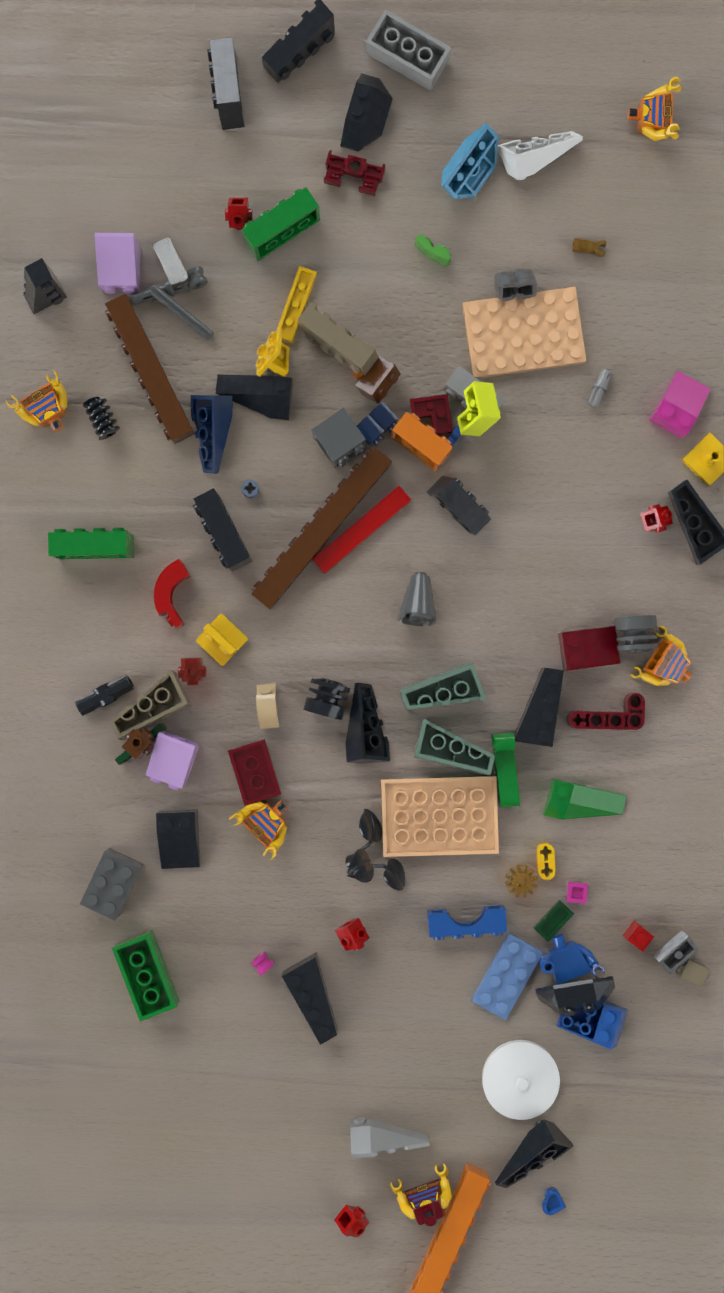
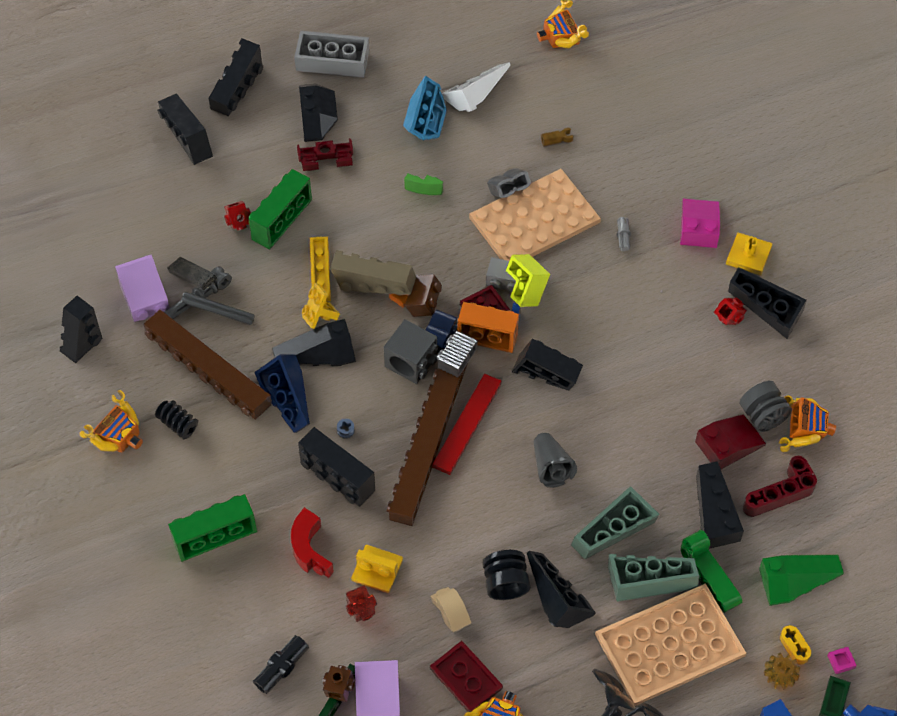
camera: 25 degrees left, 30 degrees down
(155, 705) = (342, 645): dark tan wedge -> none
(378, 461) = (457, 353): none -> flat silver brick

